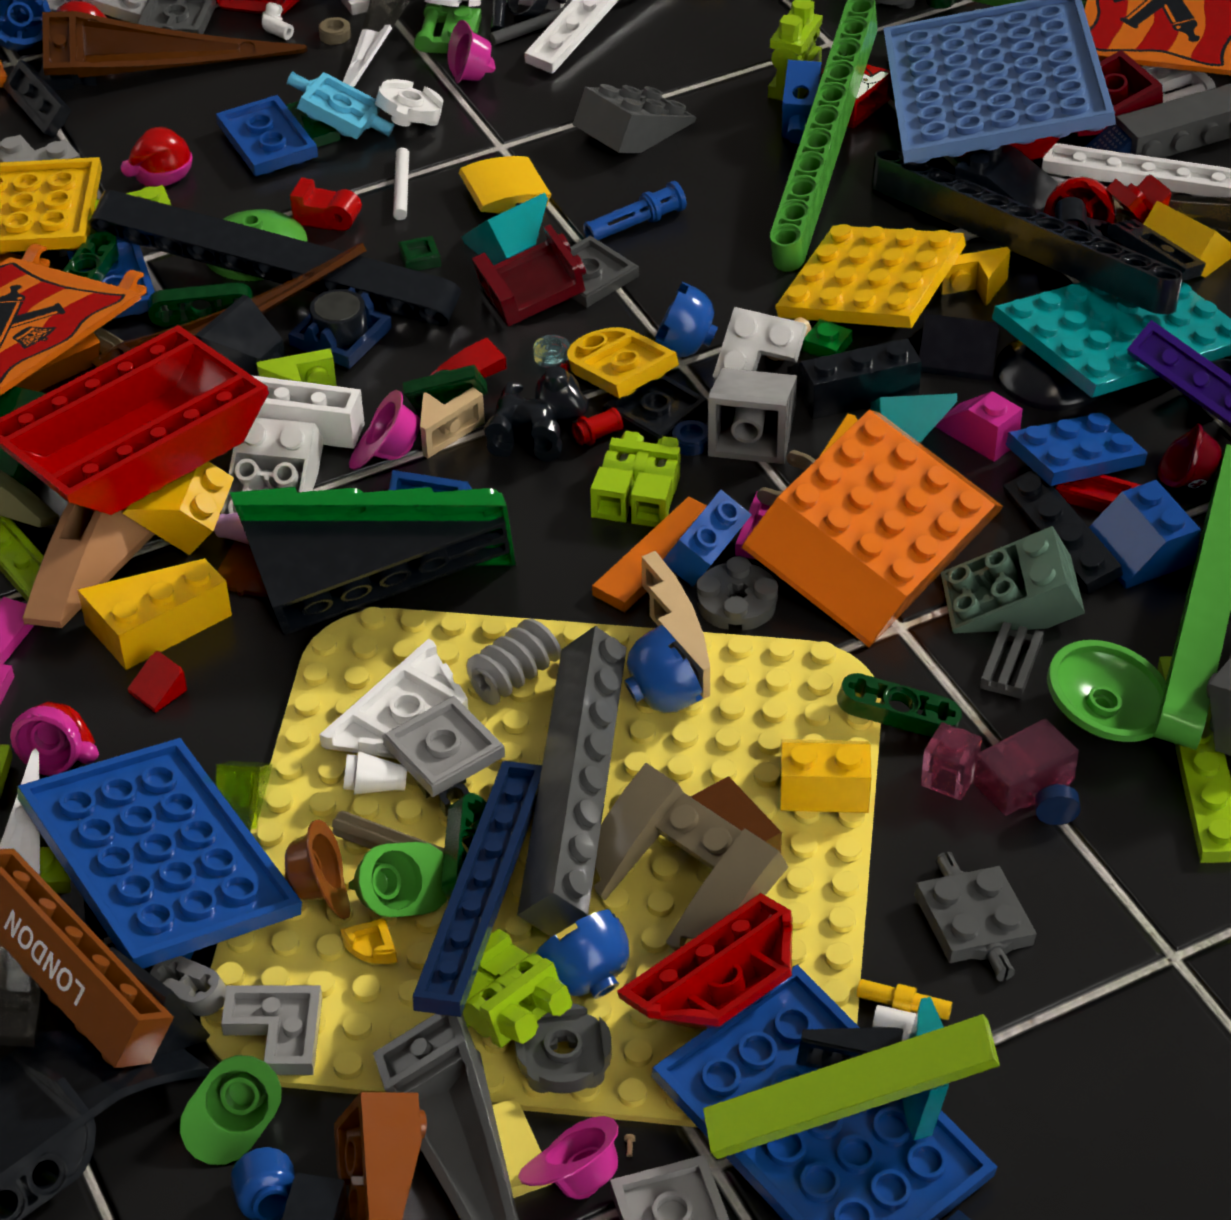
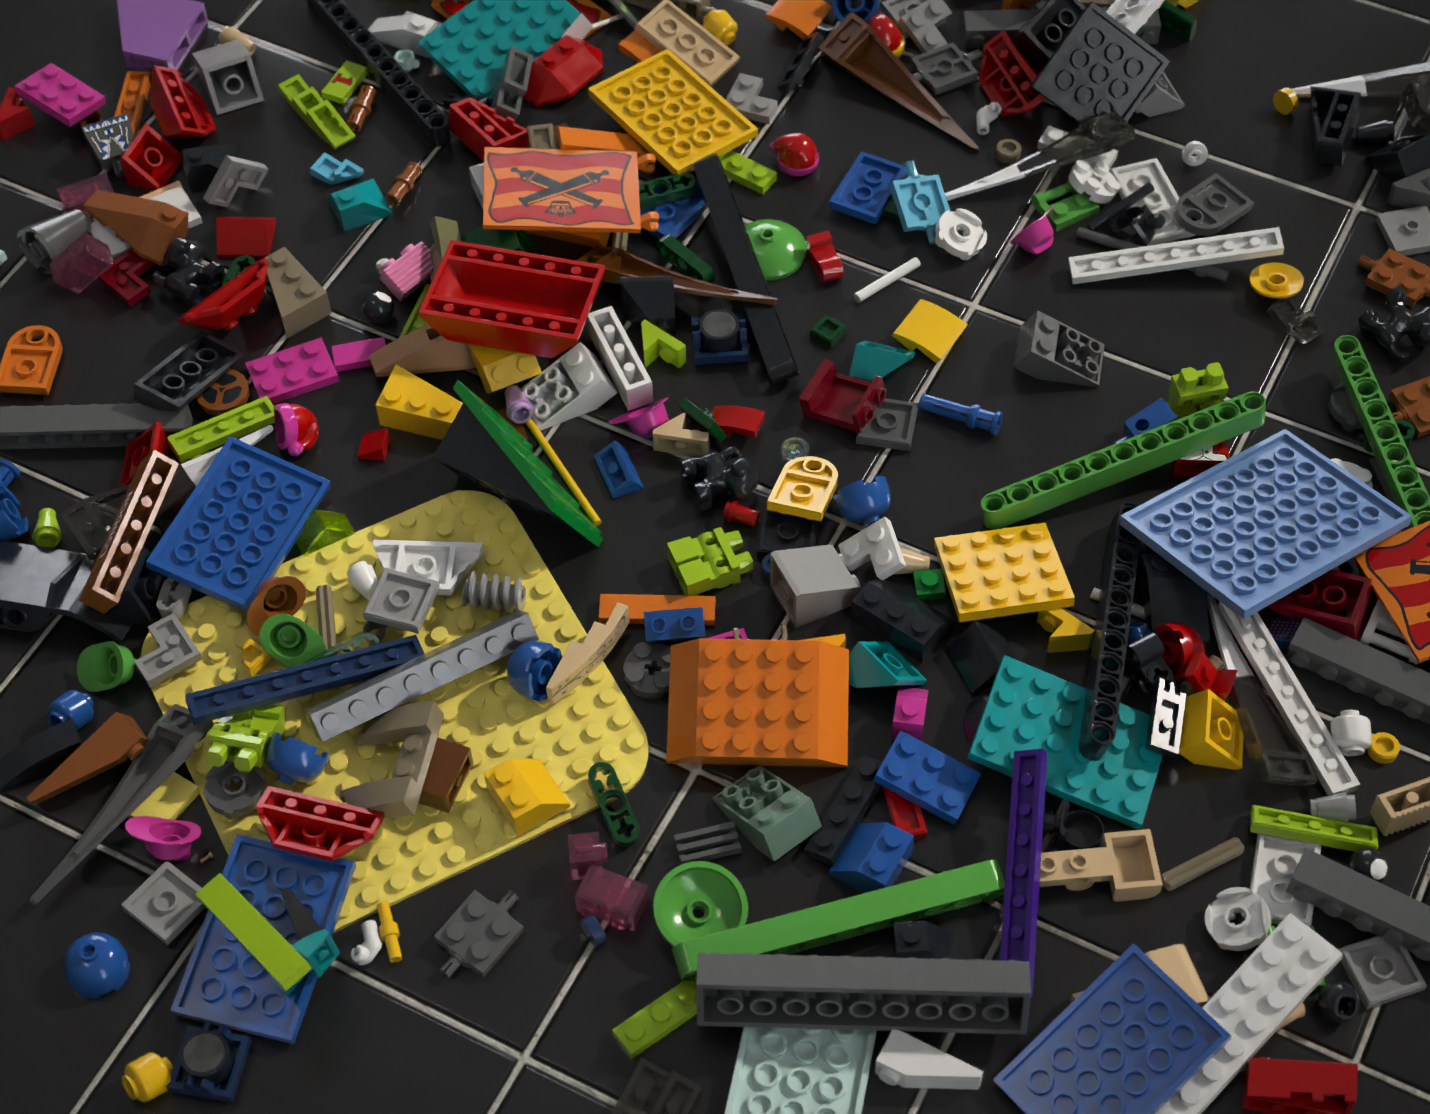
camera: 55 degrees right, 10 degrees up
(1190, 460) = (968, 848): dark red helmet -> none

